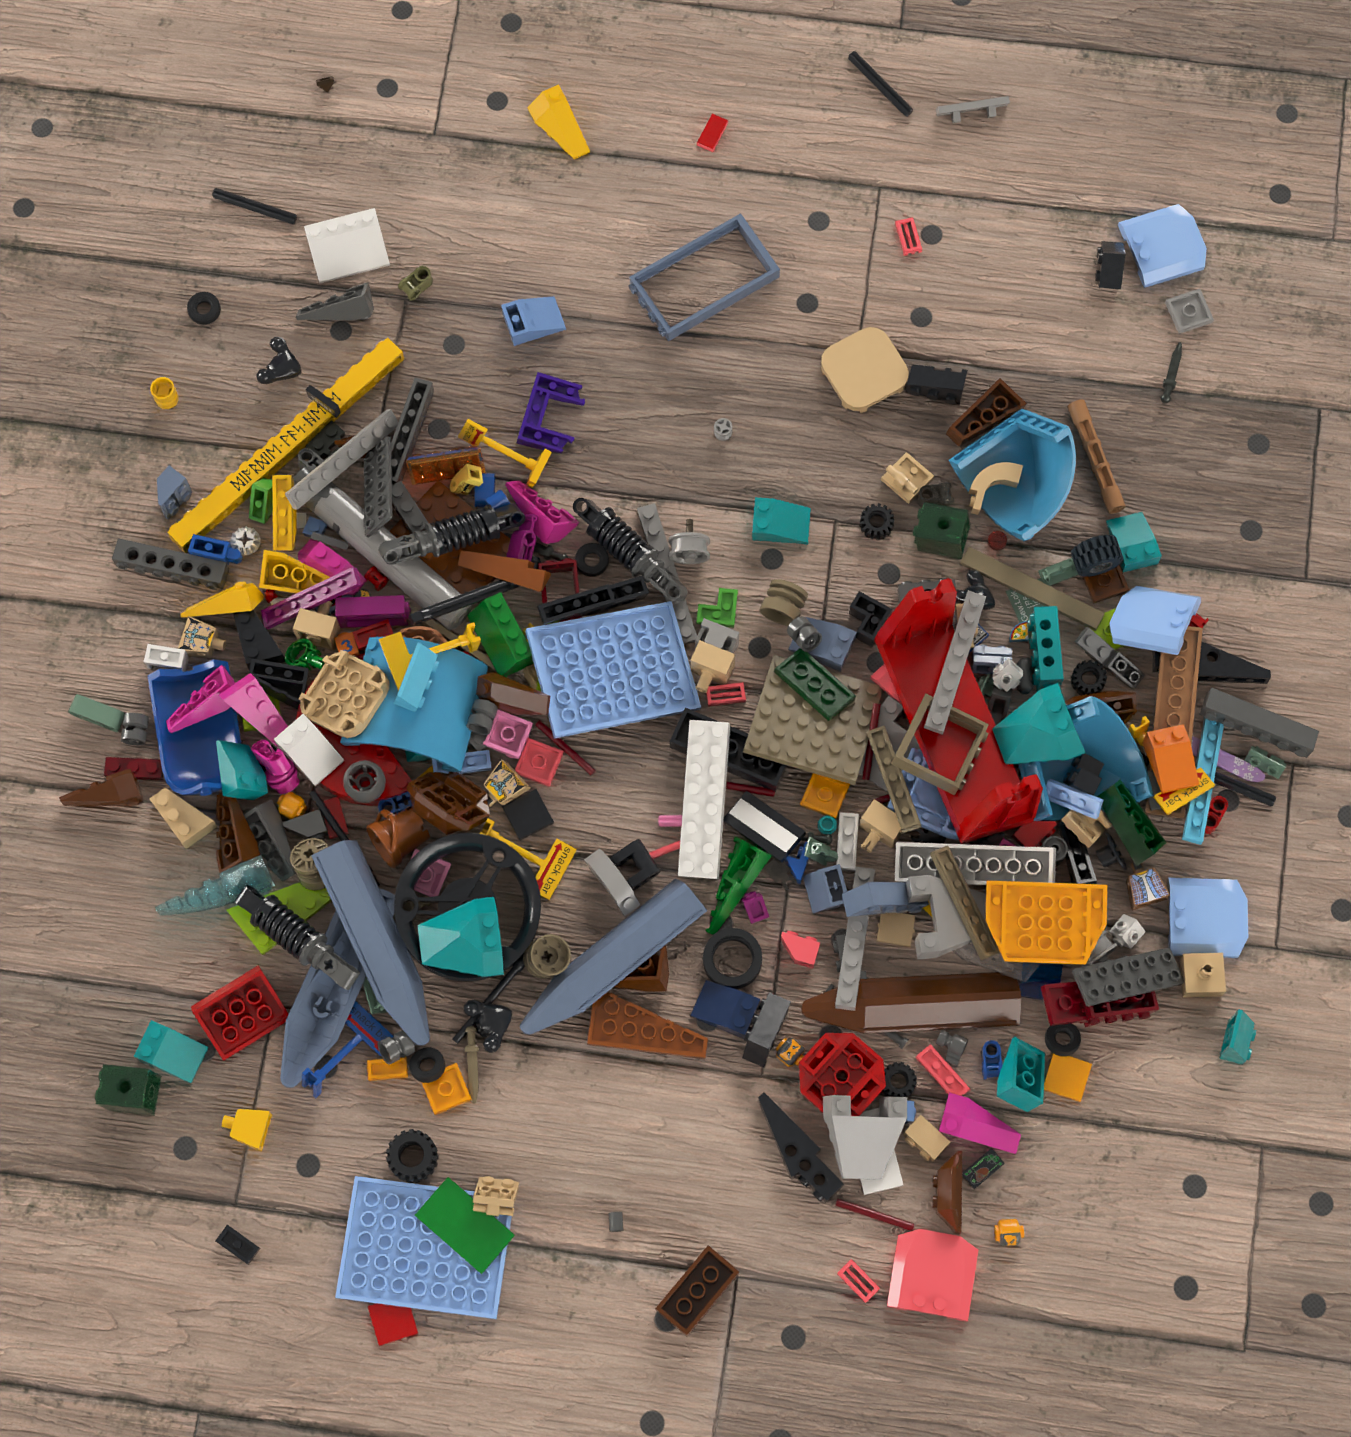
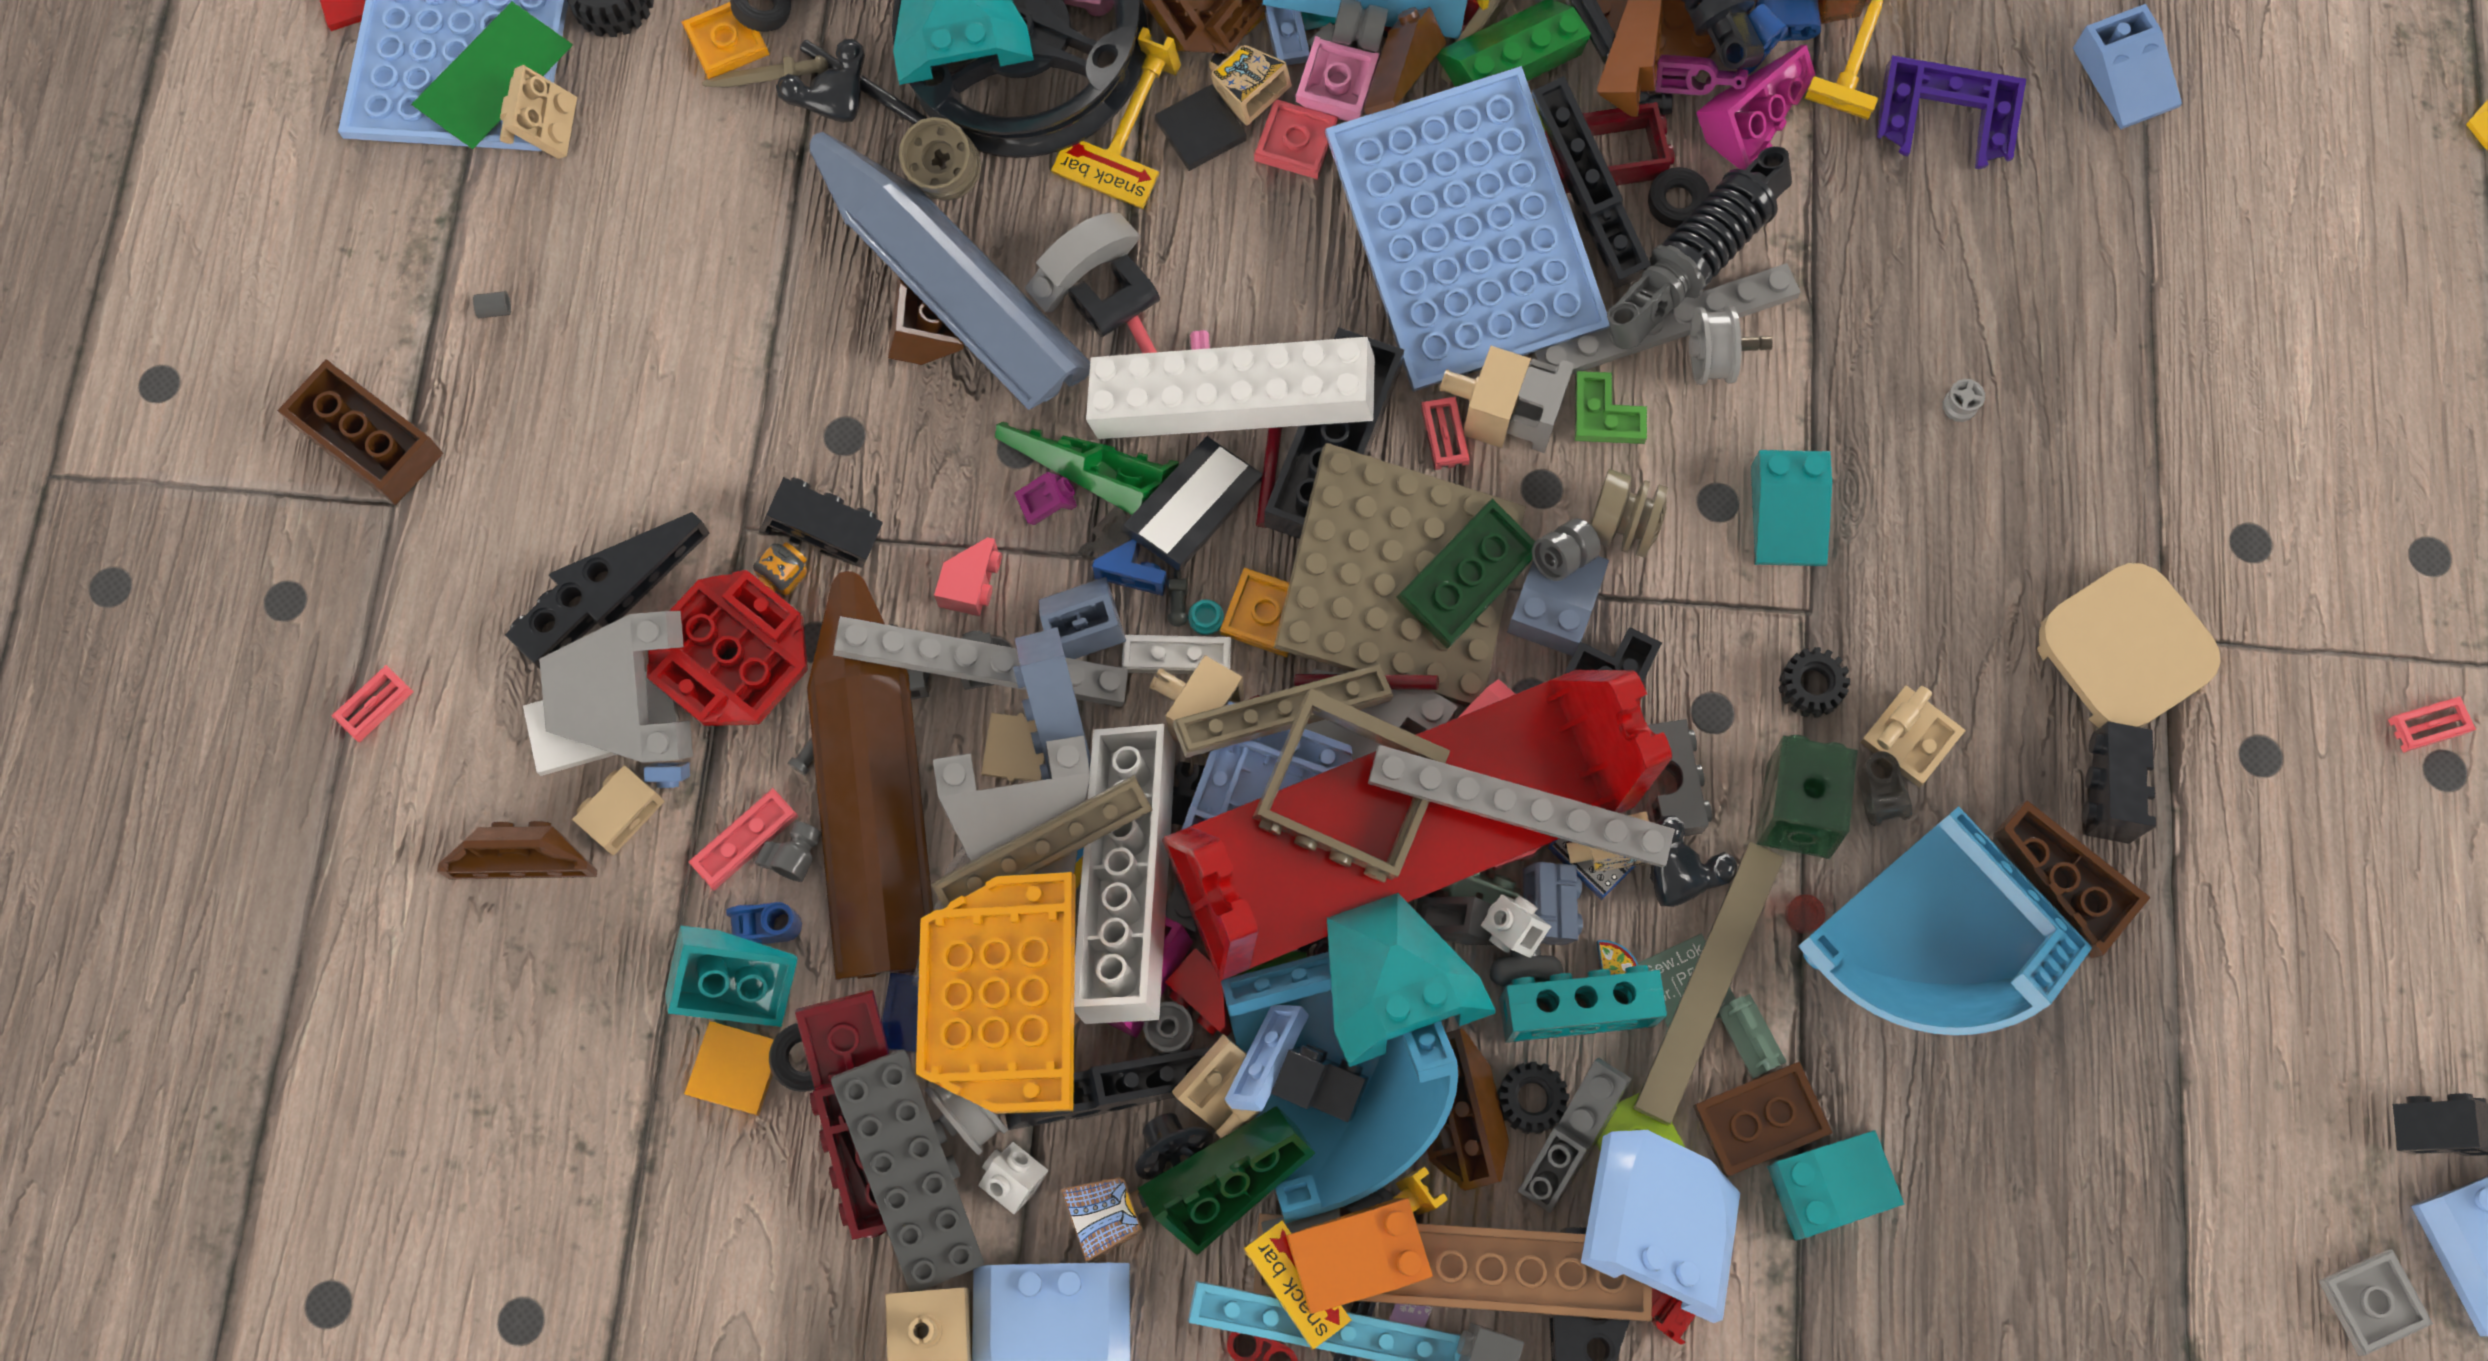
camera: 85 degrees right, 0 degrees up
(547, 552) = (1685, 124): pearl dark grey sword -> none
(566, 748) = (1308, 196): dark red bar -> none
(631, 1027) = (825, 308): dark orange wing -> none
(725, 1008) = (859, 458): dark blue slope -> none
(749, 941) = (937, 426): black tyre -> none
(752, 240) = (2309, 308): sand blue door -> none
(820, 852) = (1147, 597): sand green hinge -> none
(874, 1214) = (488, 727): dark red bar -> none
(907, 1072) = (736, 776): black tyre -> none
(933, 1274) = (372, 832): coral wedge -> none
(972, 1122) = (641, 890): dark pink wedge -> none
(982, 1168) = (564, 915): black tile -> none
(999, 473) = (1937, 891): tan arch -> none
(1008, 1232) = (440, 962): light orange head -> none
(1096, 555) = (1786, 1097): black wheel -> none
(1100, 467) = (2012, 1105): medium nougat piece -> none
(1169, 383) = (2202, 1261): pearl dark grey sword -> none

